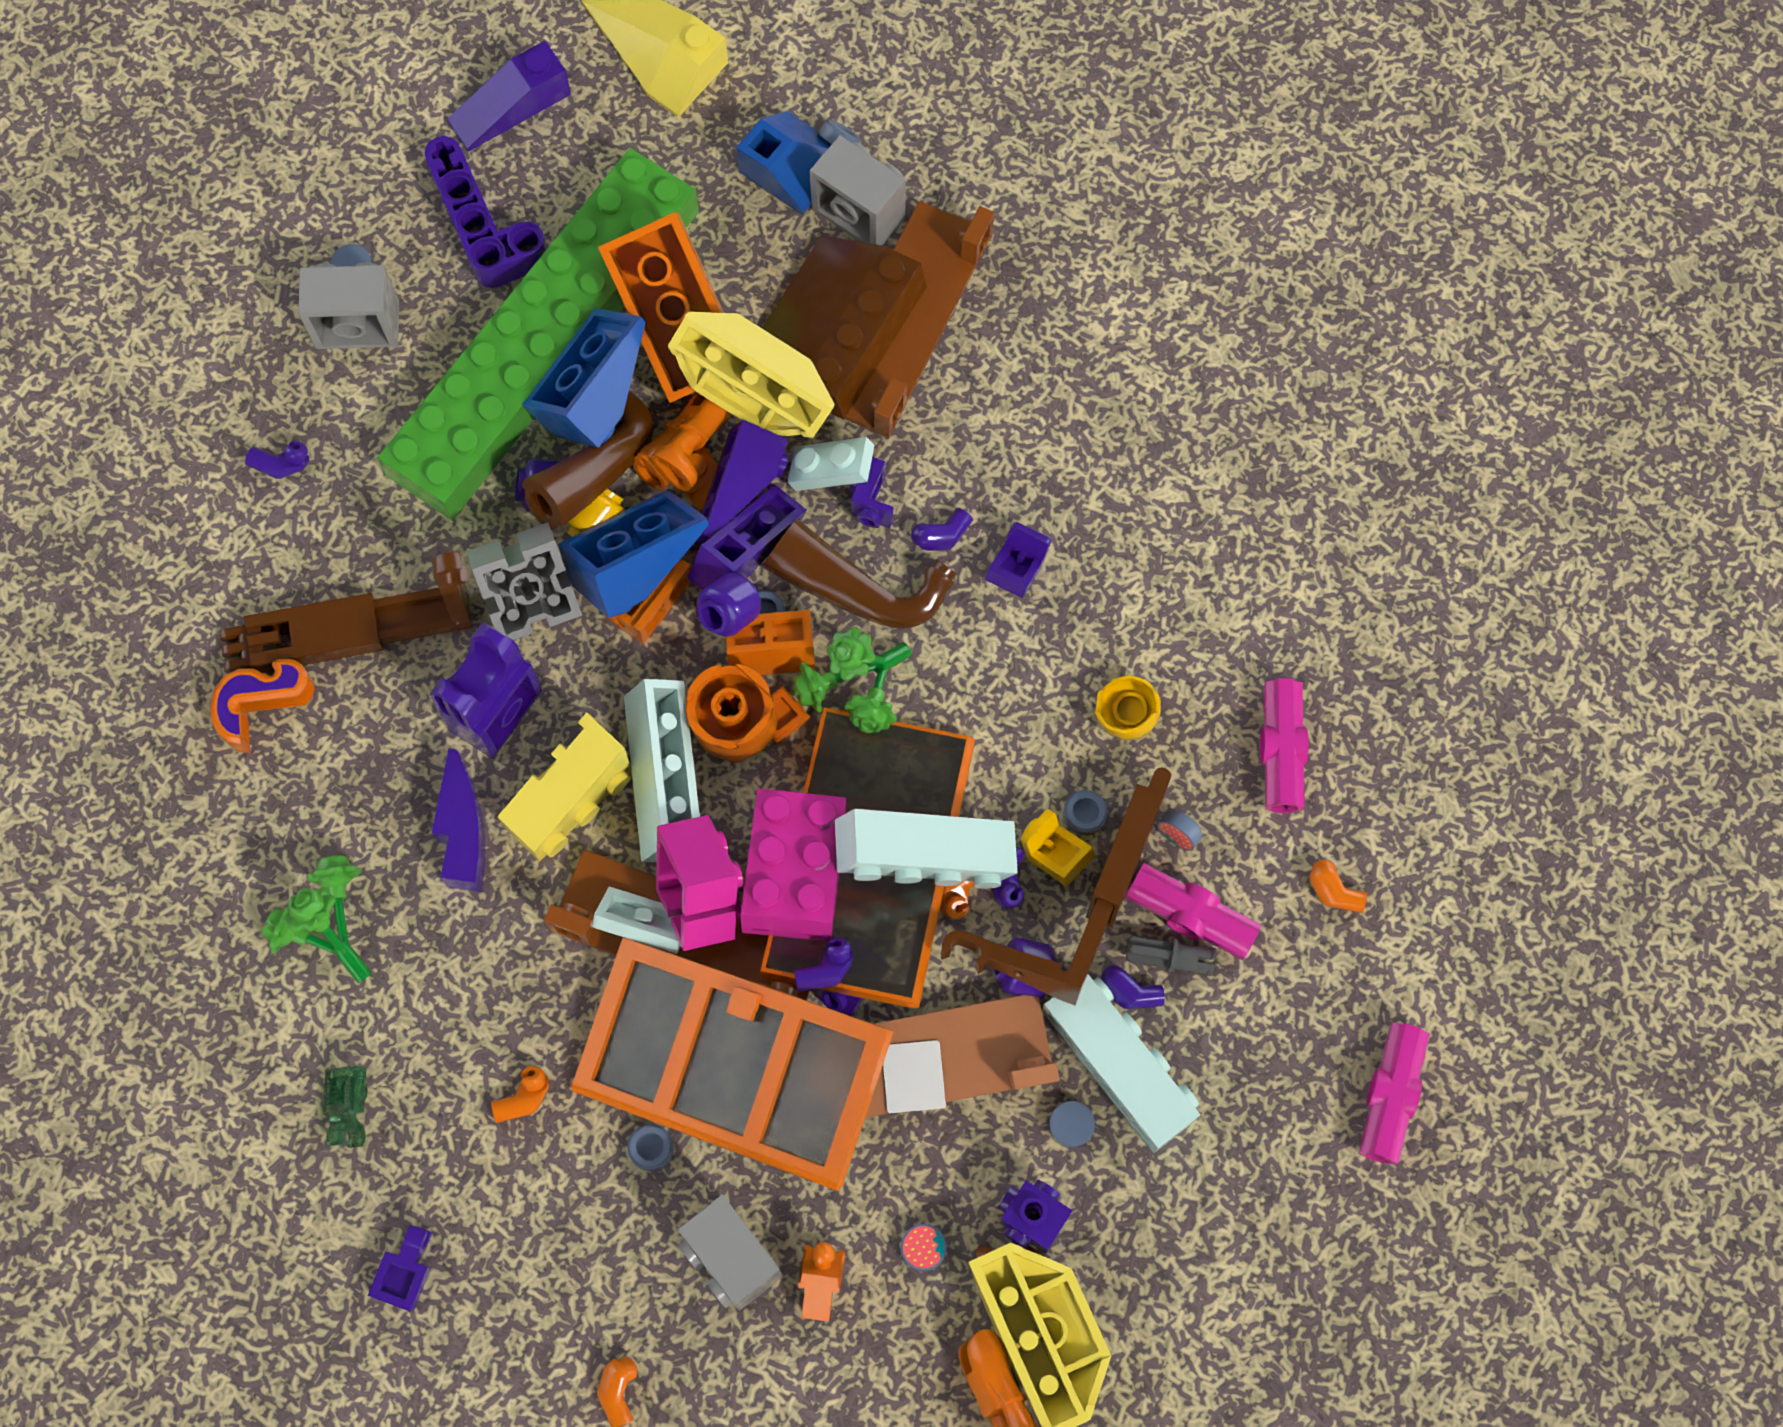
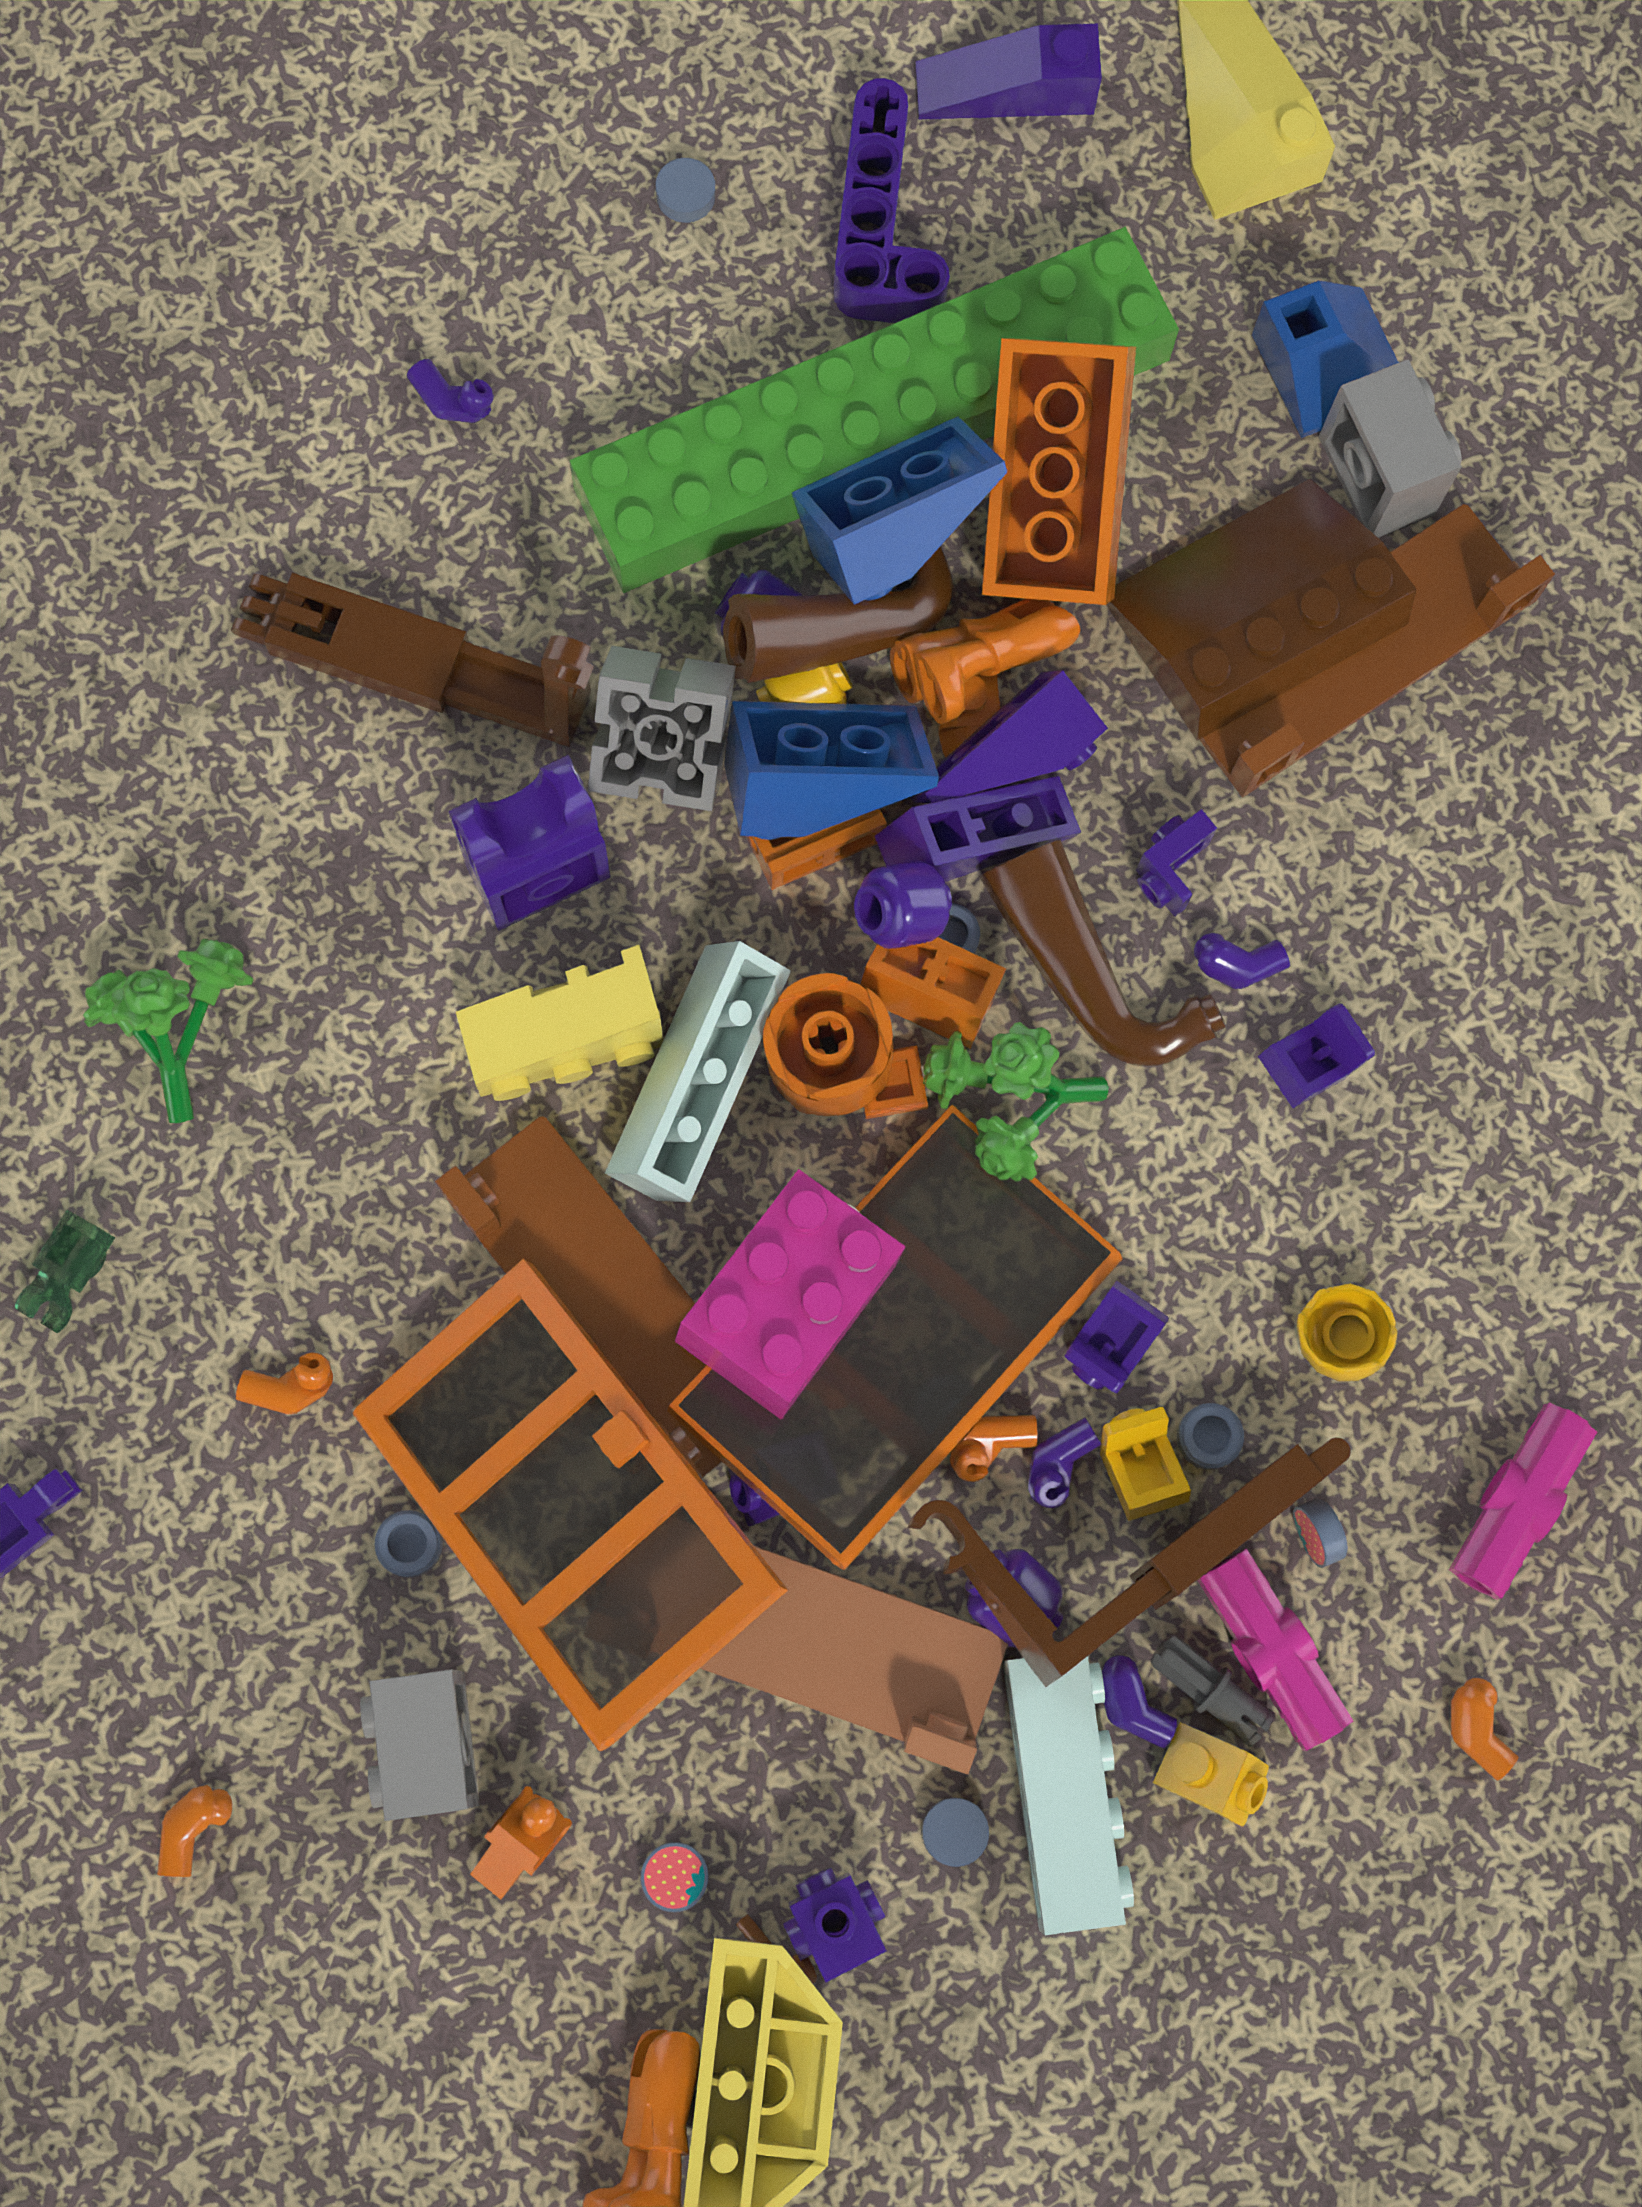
camera: 25 degrees right, 5 degrees up
(254, 691) = (246, 673): orange animal -> none
(349, 306) = (647, 241): light grey brick -> none
(460, 826) = (408, 995): dark purple slope -> none
(636, 919) = (561, 1250): light aqua plate -> none
(698, 882) = (654, 1246): dark pink piece -> none
(751, 373) = (1107, 616): light yellow wedge -> none
(830, 969) = (757, 1457): dark purple arm -> none
(831, 464) = (1145, 791): light aqua plate -> none
(832, 129) = (1407, 345): sand blue tile -> none
(914, 1077) = (788, 1653): white sticker -> none
(925, 847) = (971, 1370): light aqua brick -> none
(997, 786) = (1115, 1338): none -> dark purple bracket
(1200, 1003) = (1213, 1774): none -> yellow bracket
(1394, 1093) = (1397, 2043): dark pink piece -> none

